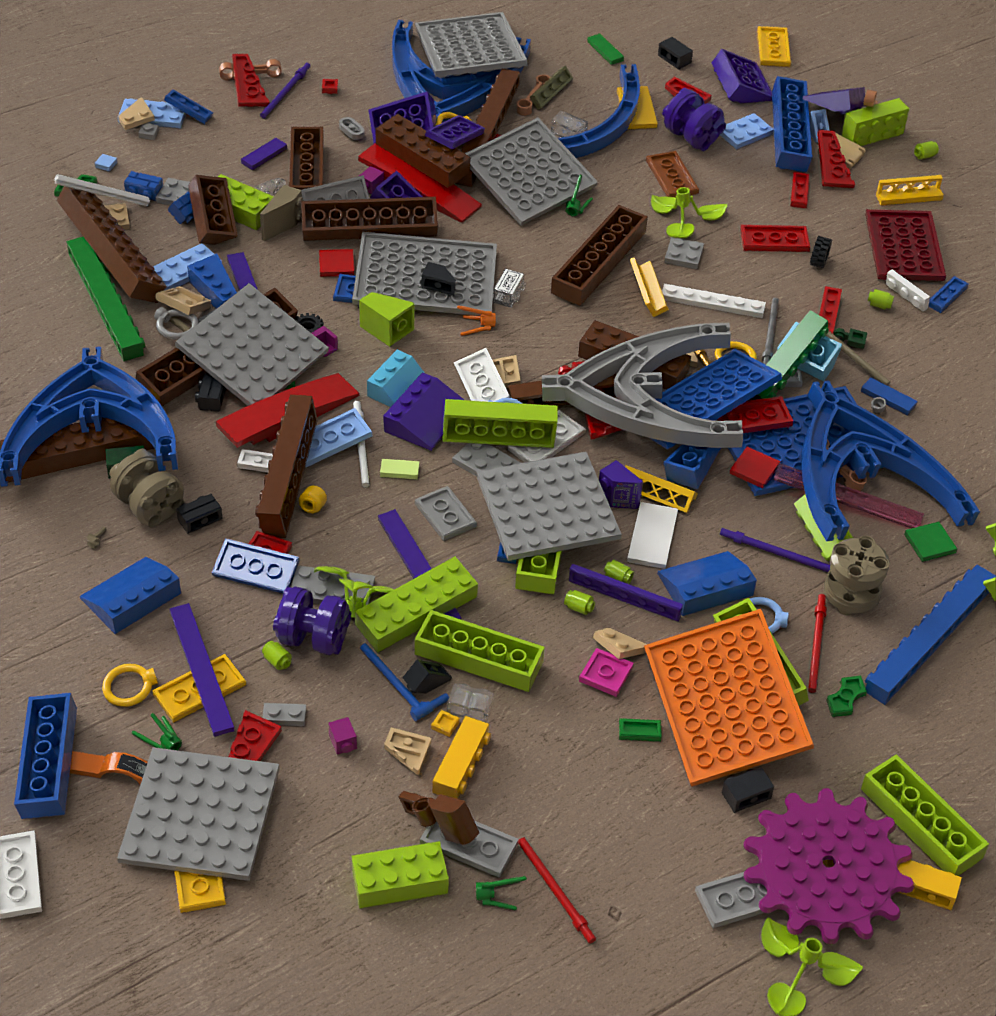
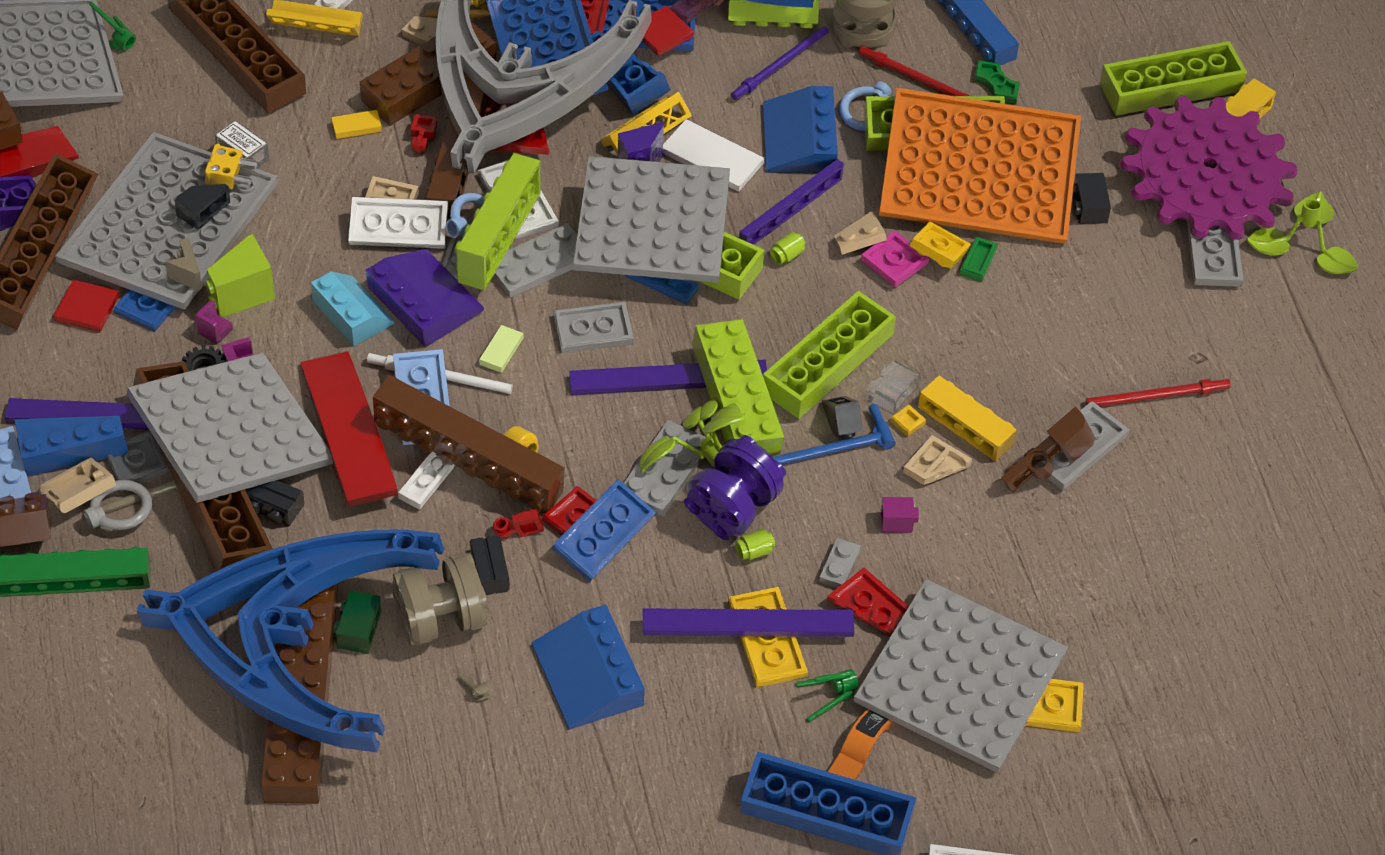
camera: 70 degrees left, 5 degrees up
(149, 679) = (737, 681): yellow piece -> none
(243, 521) = (524, 524): none -> red plate
(347, 319) = (212, 325): none -> magenta panel
(384, 286) = (185, 267): none -> dark tan slope
(399, 874) = (1104, 515): lime brick -> none
(479, 281) = (225, 167): none -> yellow piece
(485, 891) = (1144, 450): green plant -> none
(487, 319) = (286, 187): orange plant -> none
(565, 337) = (356, 124): none -> yellow tile
(618, 571) = (759, 200): lime brick -> none
(632, 694) = (940, 245): none -> yellow plate

